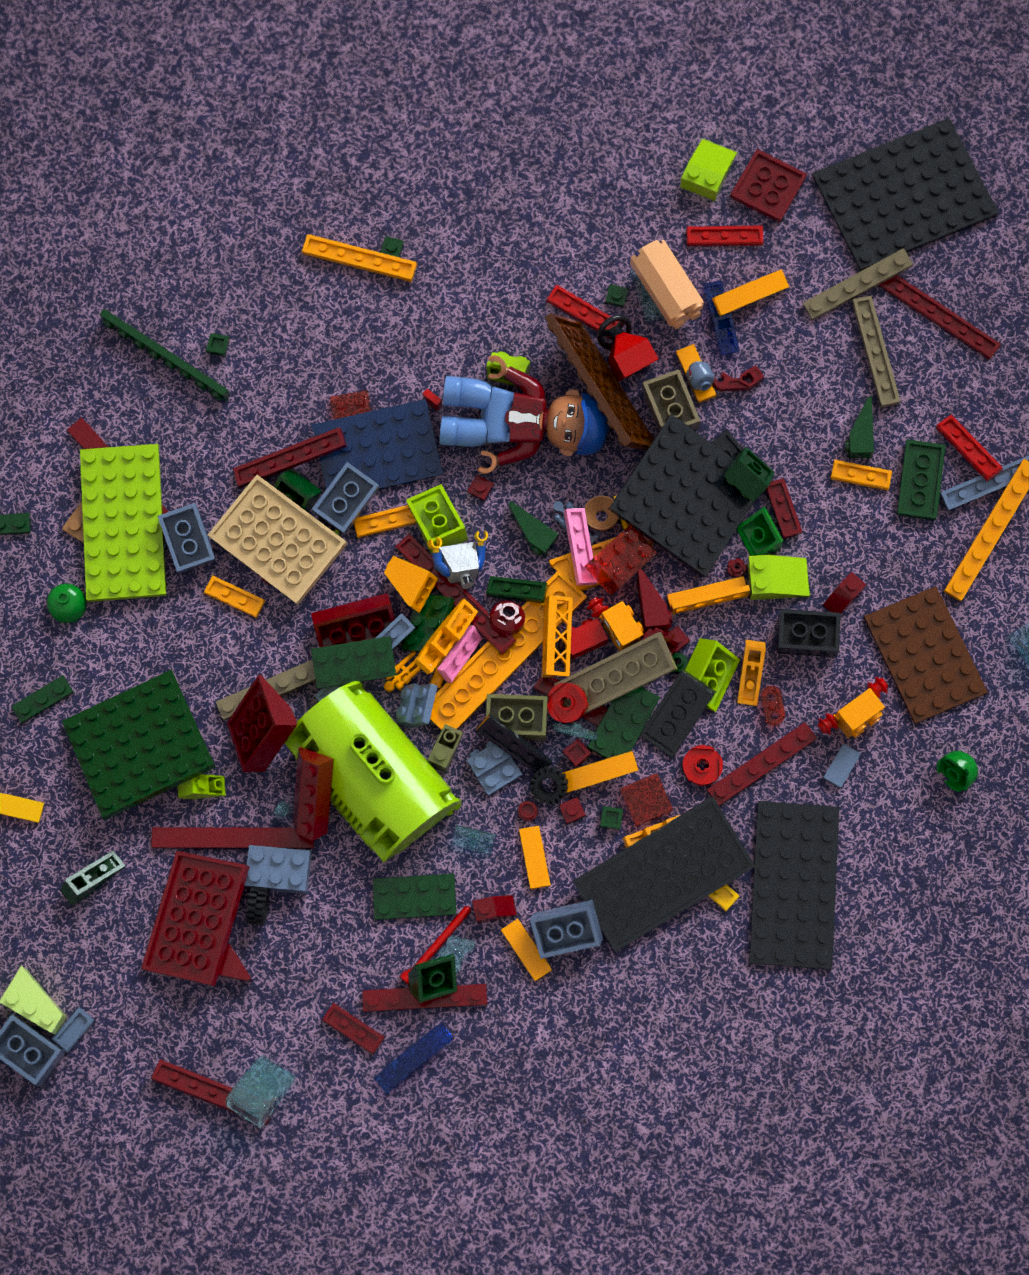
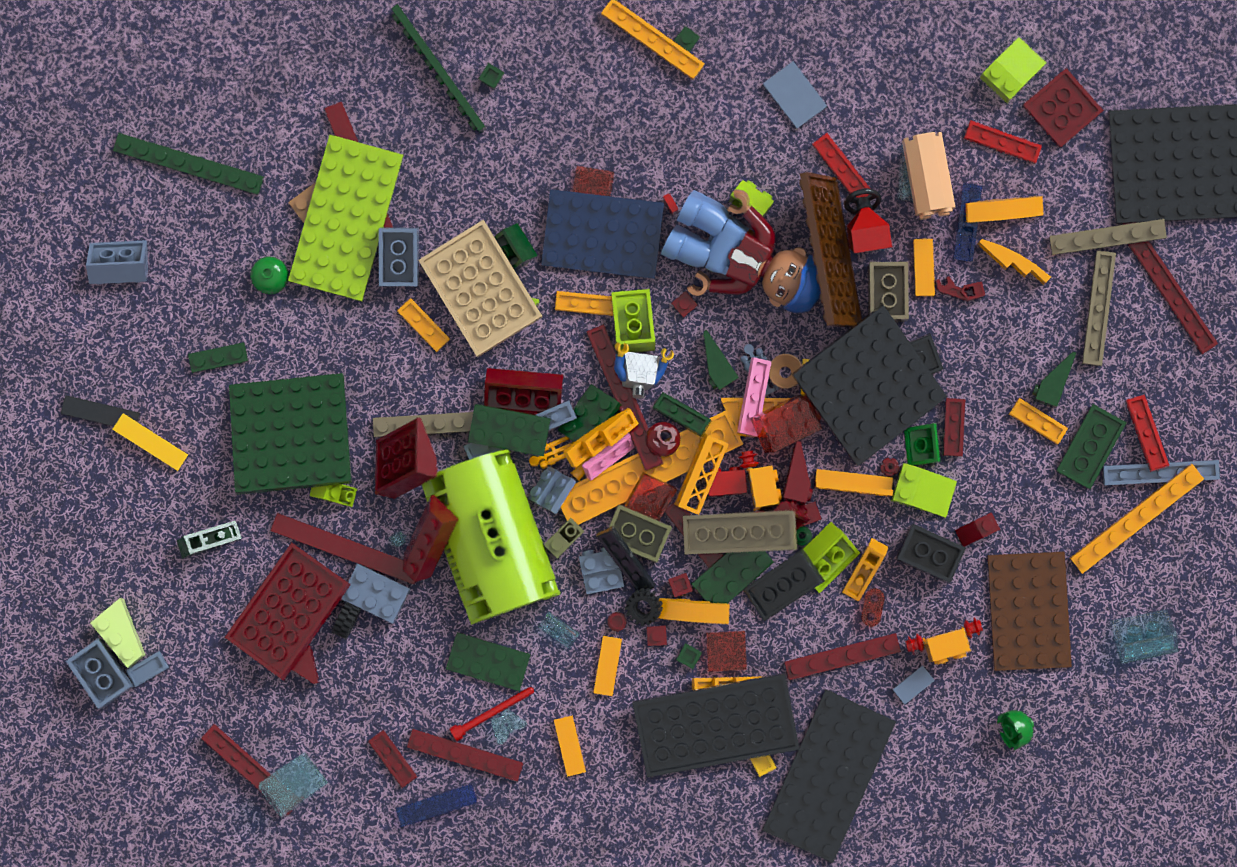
camera: 15 degrees right, 10 degrees up
(290, 457) = (519, 213): dark red plate -> none
(345, 498) = (556, 273): sand blue brick -> none
(410, 581) = (587, 373): light orange slope -> none
(433, 978) = (477, 745): dark green slope -> none
(494, 908) = (555, 699): dark red slope -> none
(513, 262) = (794, 95): none -> sand blue tile
(515, 676) = (650, 497): none -> clear red plate
(556, 700) = (697, 542): red plate -> none
(566, 929) = (611, 743): sand blue brick -> none
(575, 730) = (686, 566): clear light blue plate -> none
(616, 295) = (879, 164): dark green plate -> none
(694, 757) = (793, 648): red plate -> none
(700, 375) = (926, 274): sand blue head -> none
(749, 474) = (934, 386): dark green slope -> none
(770, 335) = (1007, 257): none -> light orange slope

